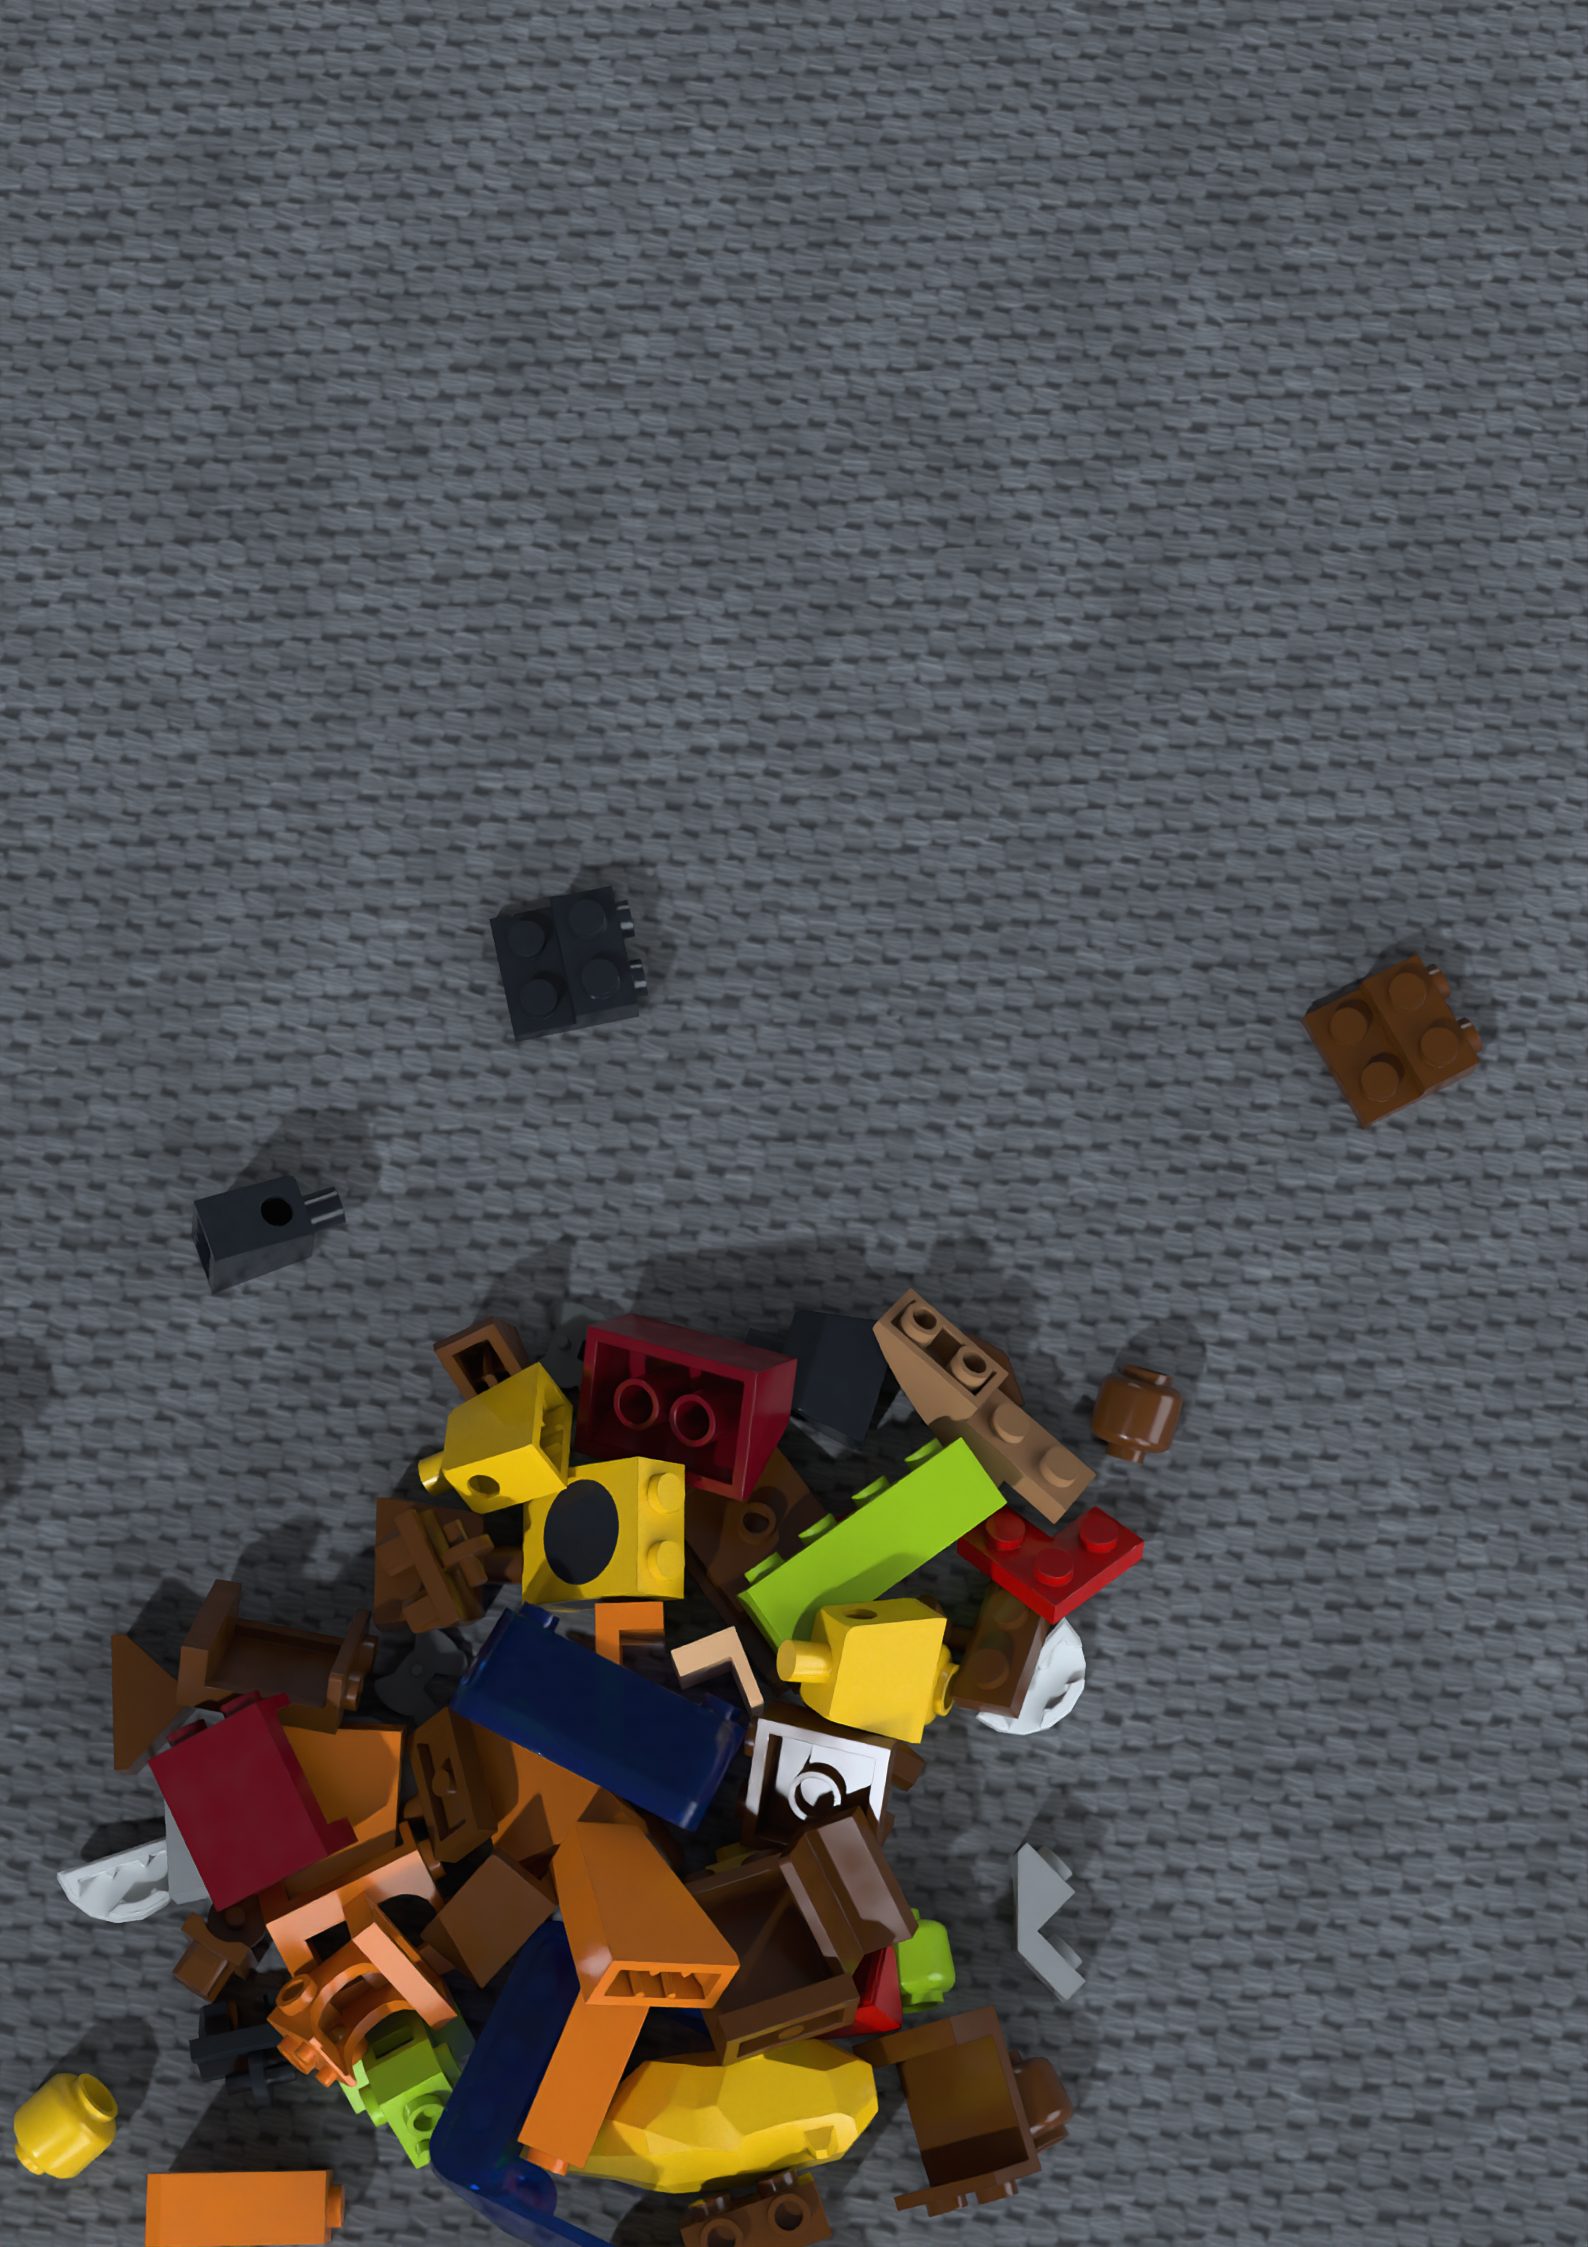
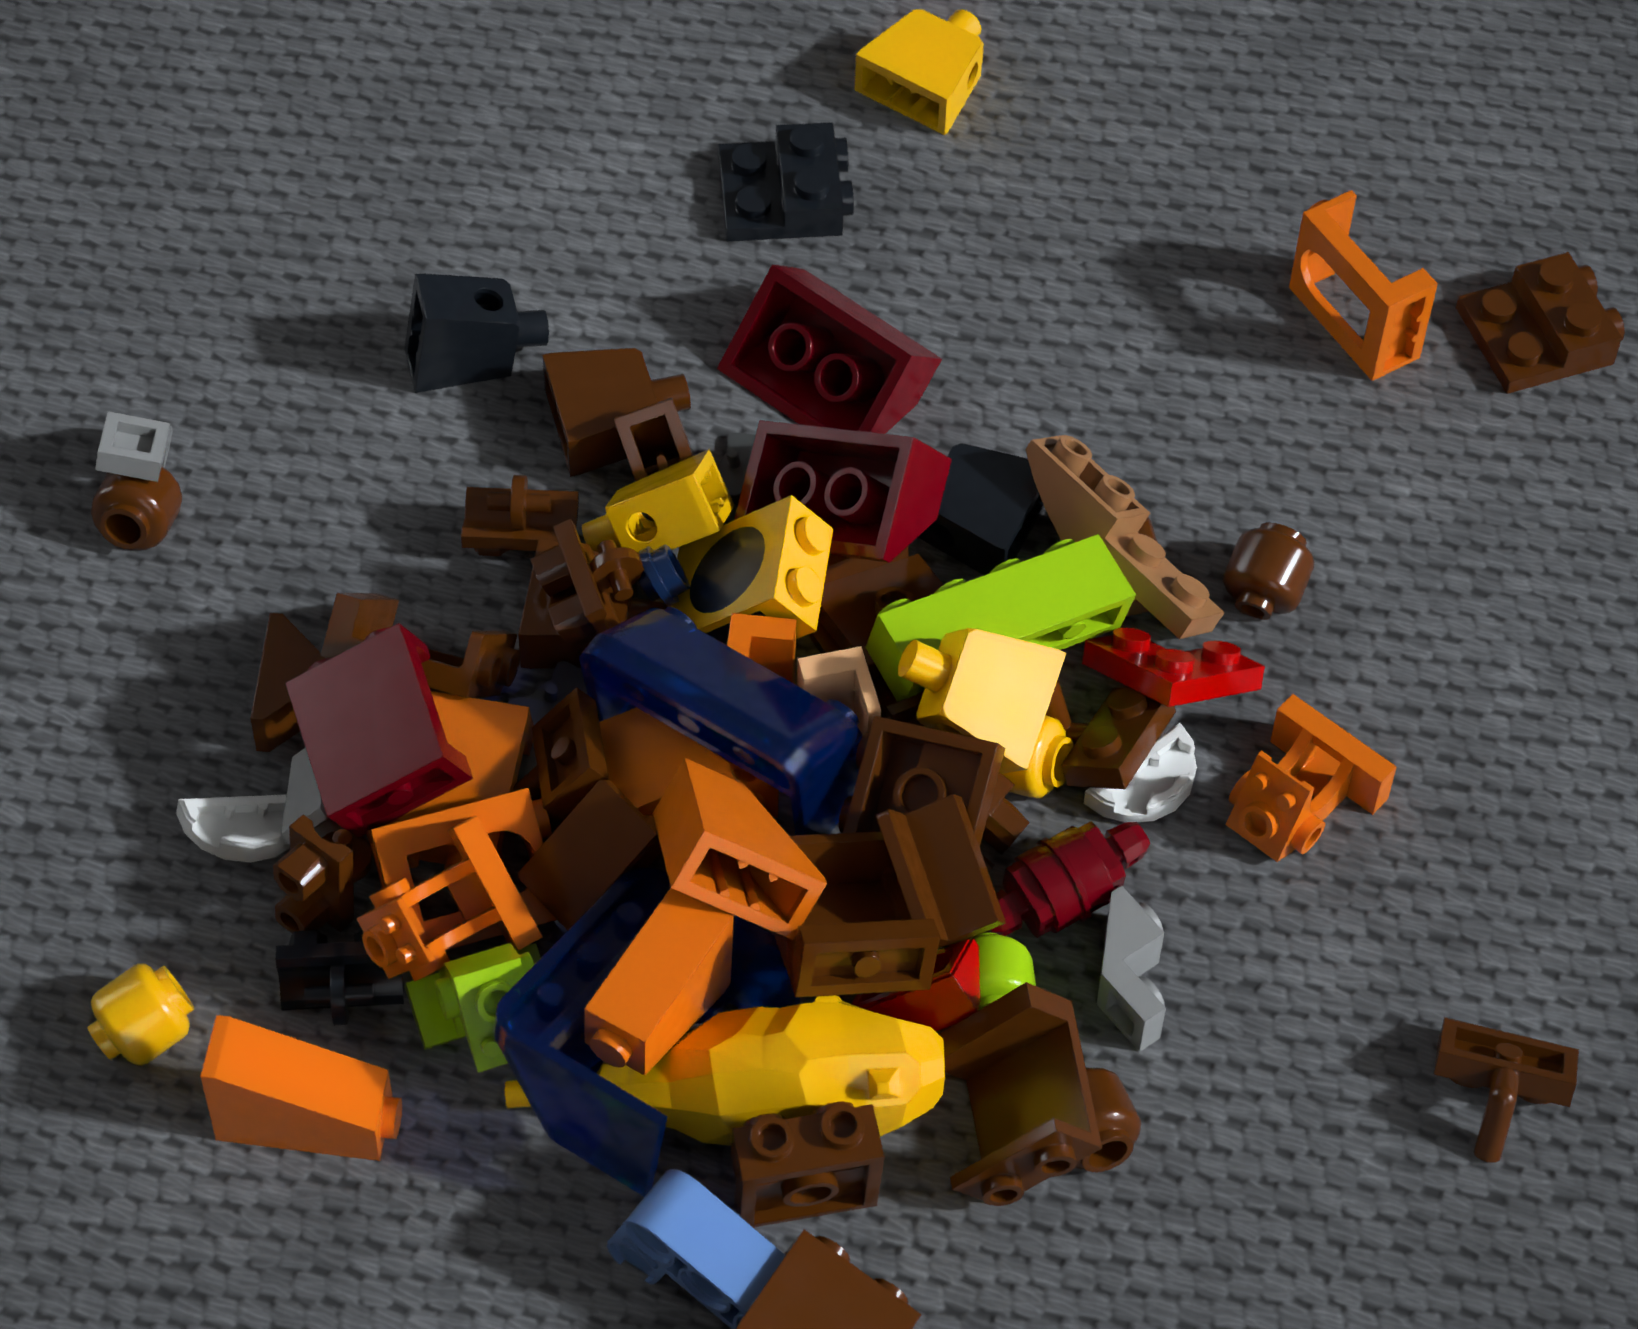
camera: 10 degrees right, 20 degrees down
(352, 1465) = (514, 517): none -> reddish brown hips
(421, 1295) = (591, 390): none -> reddish brown torso
(513, 1535) = (662, 575): none -> dark blue plate
(646, 1202) = (825, 356): none -> dark red slope
(701, 782) = (923, 66): none -> yellow torso
(969, 1830) = (1068, 877): none -> dark red piece
(1214, 1647) = (1320, 764): none -> orange tile
(1236, 1087) = (1397, 309): none -> orange panel
(1426, 1979) = (1509, 1067): none -> reddish brown plate

